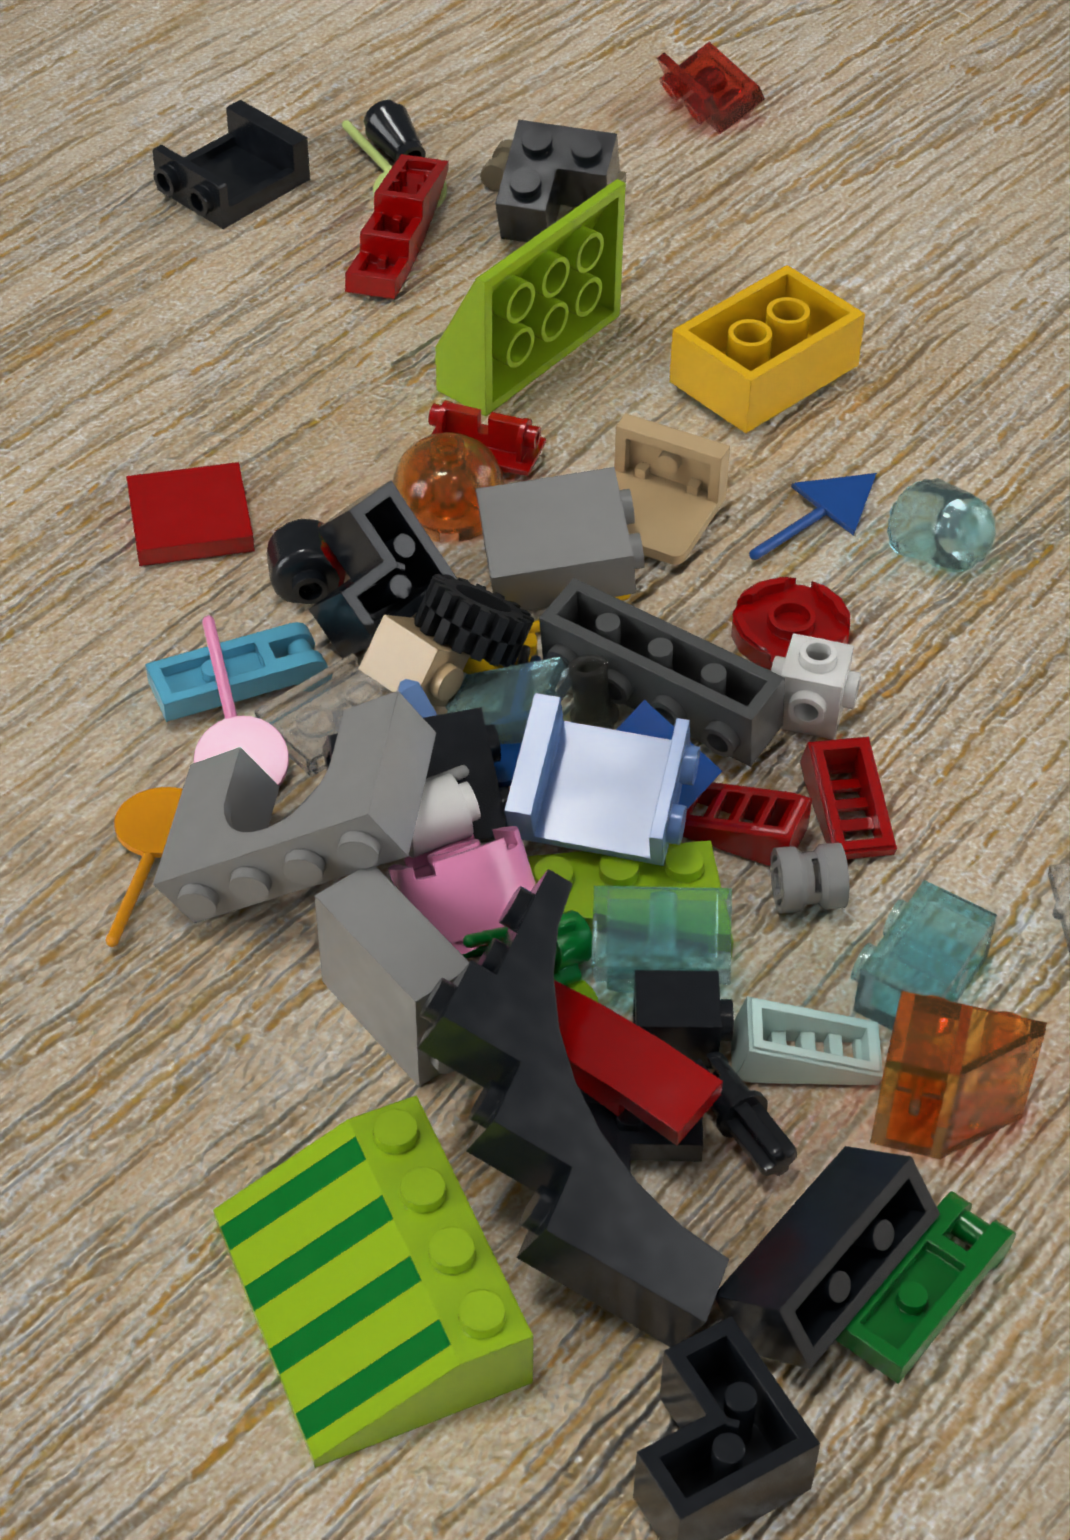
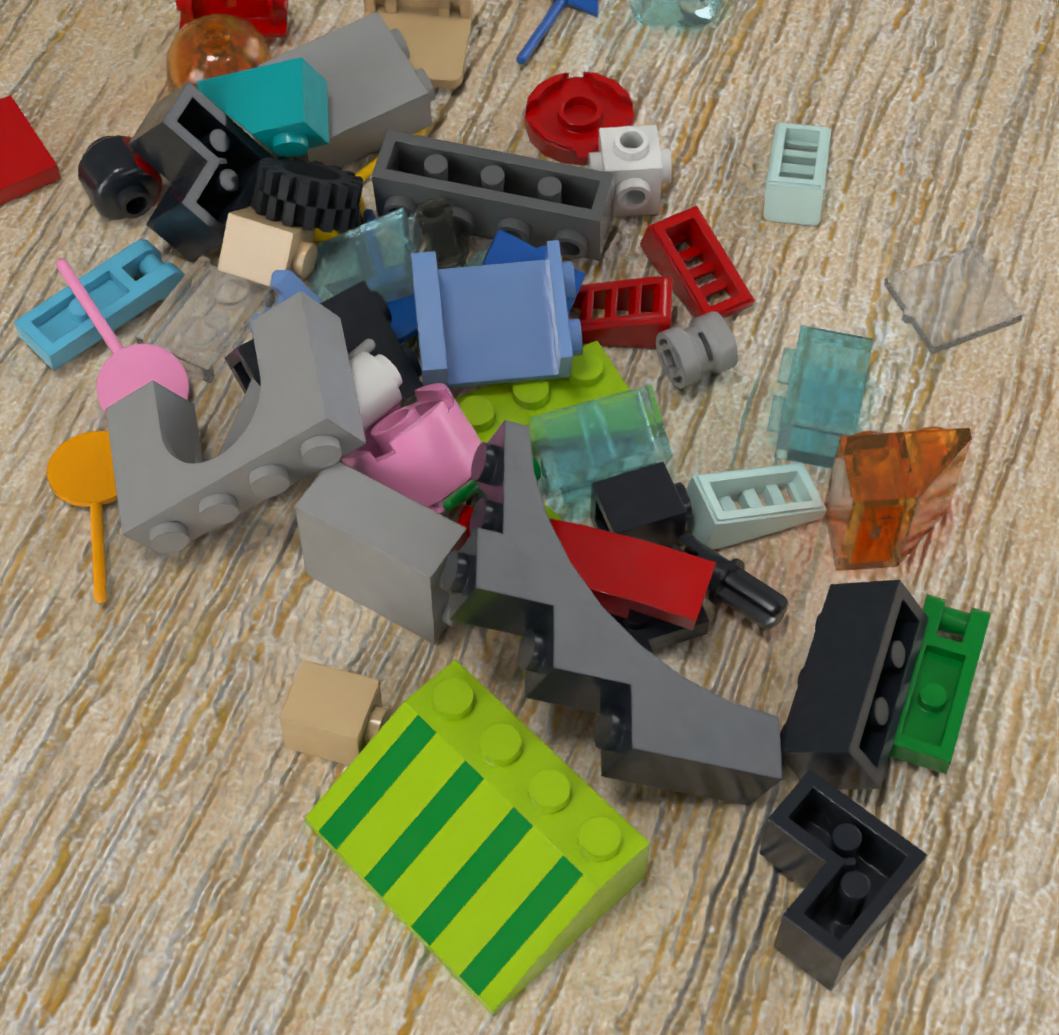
camera: 20 degrees left, 10 degrees up
(277, 1111) = (331, 712): none -> tan brick
(474, 527) = (276, 104): none -> teal slope
(992, 744) = (796, 176): none -> light aqua slope

